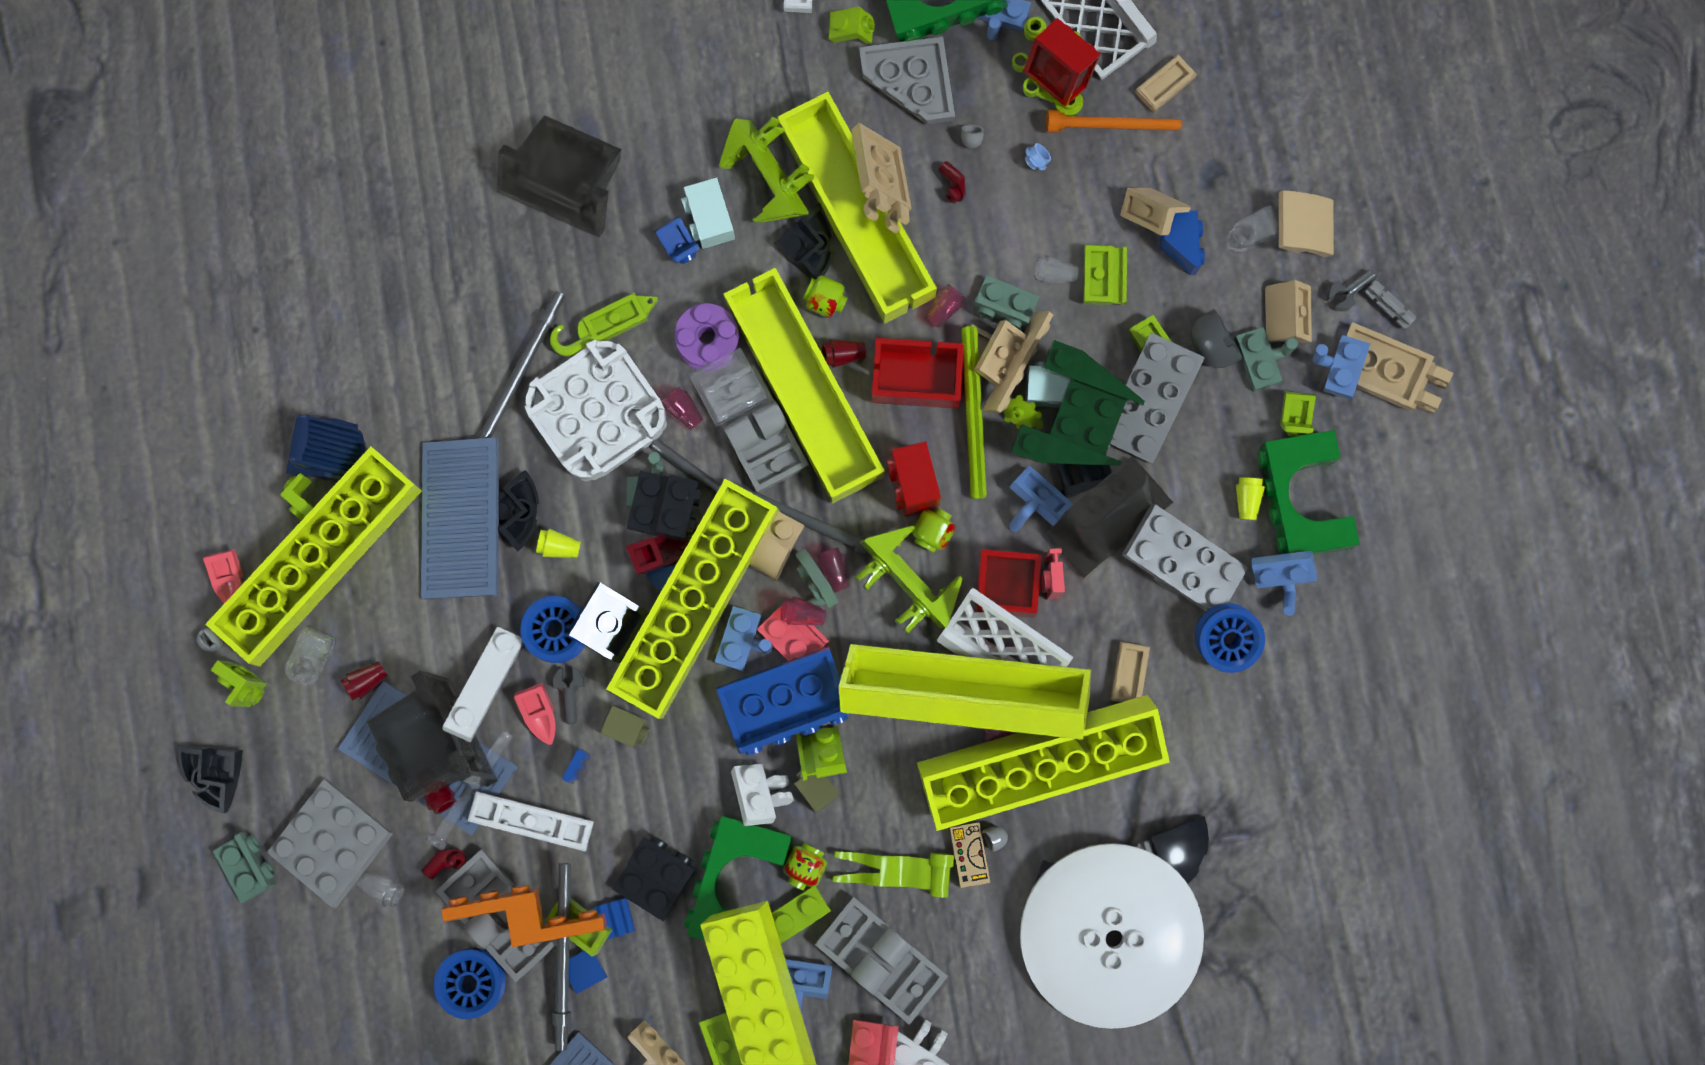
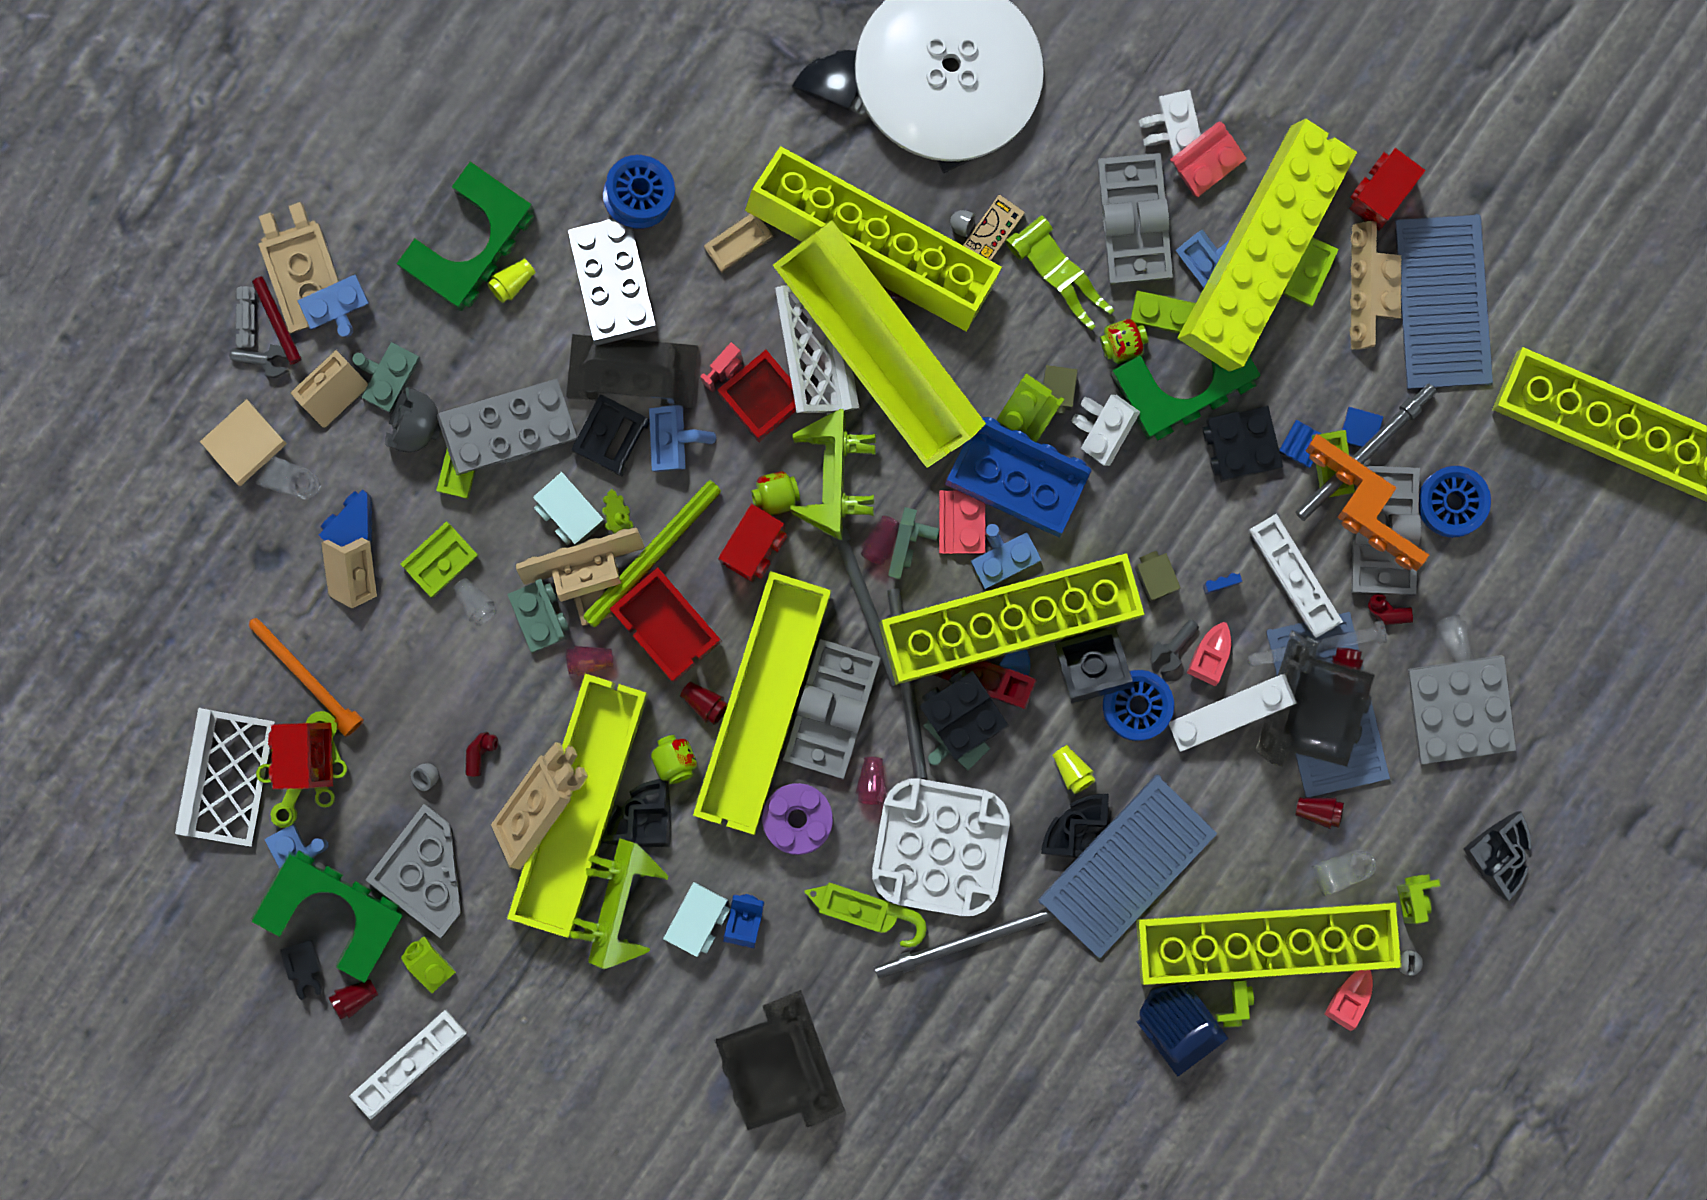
camera: 130 degrees left, 5 degrees up
(245, 867) = (1542, 755): sand green bracket -> none
(728, 387) = (822, 758): clear plate -> none
(776, 546) = (906, 597): tan brick -> none
(800, 612) = (940, 529): clear pink cone -> none
(1037, 157) = (392, 706): light blue plate -> none
(1085, 414) = (577, 460): dark green wedge -> none
(1165, 83) = (227, 666): tan tile -> none
(1285, 571) = (545, 197): medium blue plate -> none
(1297, 413) = (408, 304): lime bracket -> none
(1368, 321) = (276, 320): none -> dark red bar

